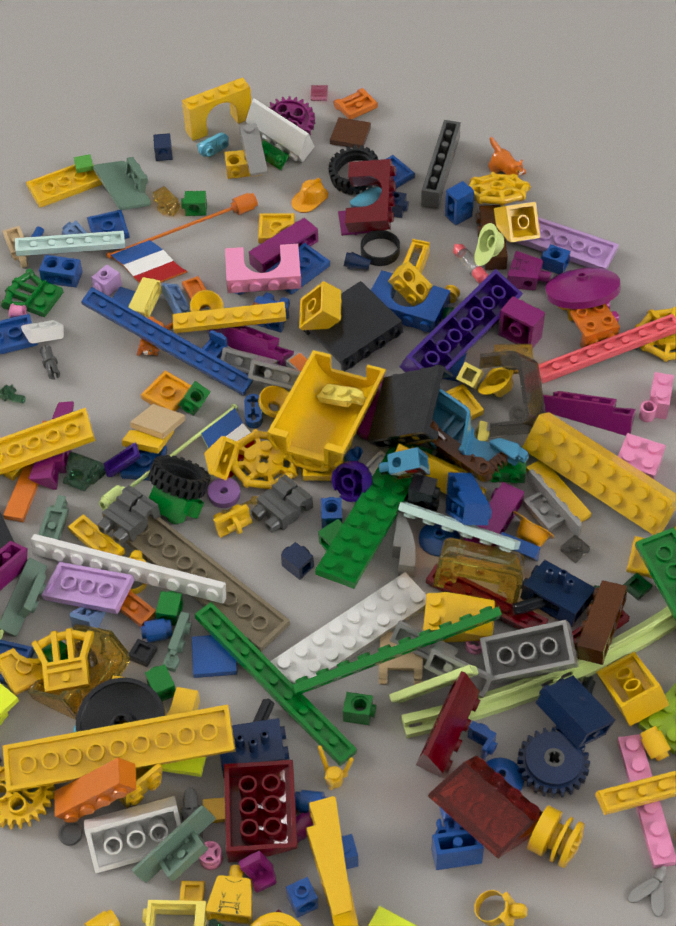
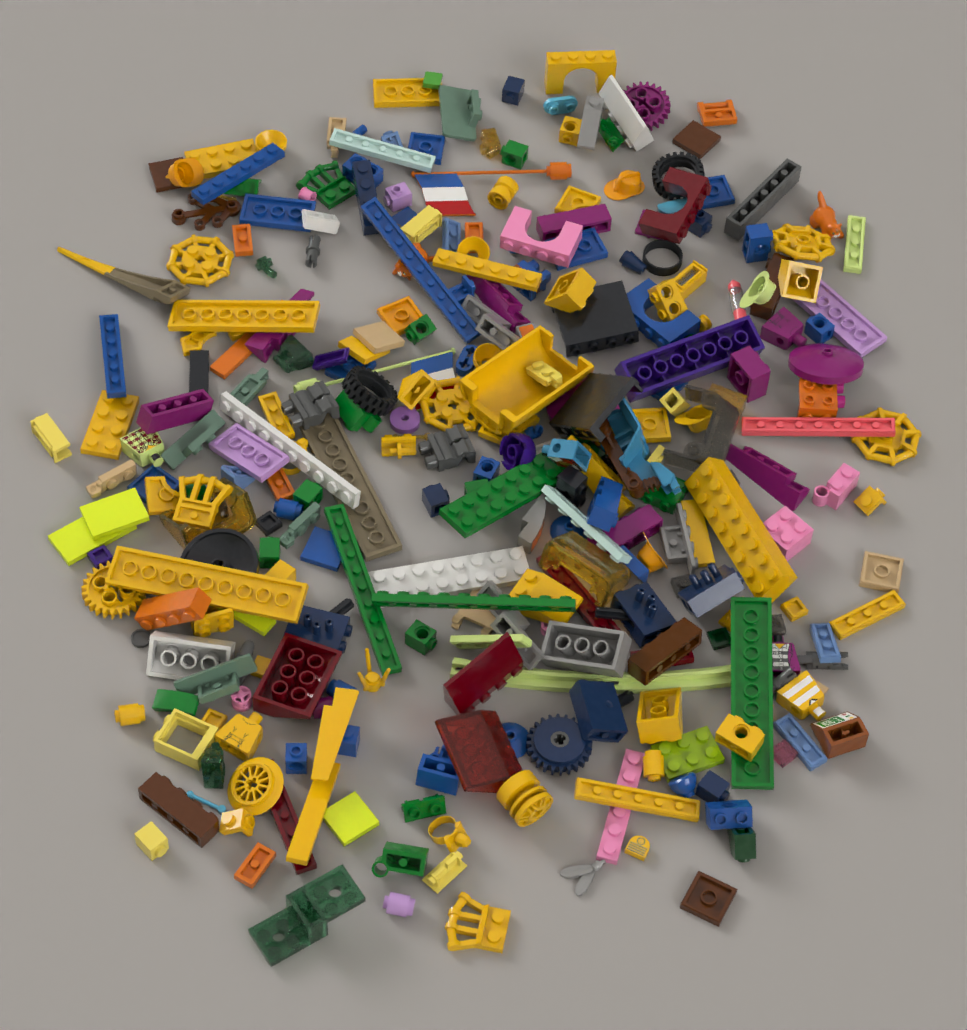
camera: 20 degrees right, 0 degrees up
(75, 288) = (365, 191): none -> dark blue brick
(143, 889) = (167, 700): none -> green slope
(203, 241) = (502, 192): none -> yellow wheel
(259, 870) = (273, 724): magenta bracket -> none
(319, 92) = (689, 90): clear pink tile -> none
(465, 885) = (425, 808): none -> green hinge
(484, 736) = (513, 702): blue bracket -> none
(539, 175) = (854, 244): none -> yellowish green tile
(611, 542) = (710, 589): none -> piece

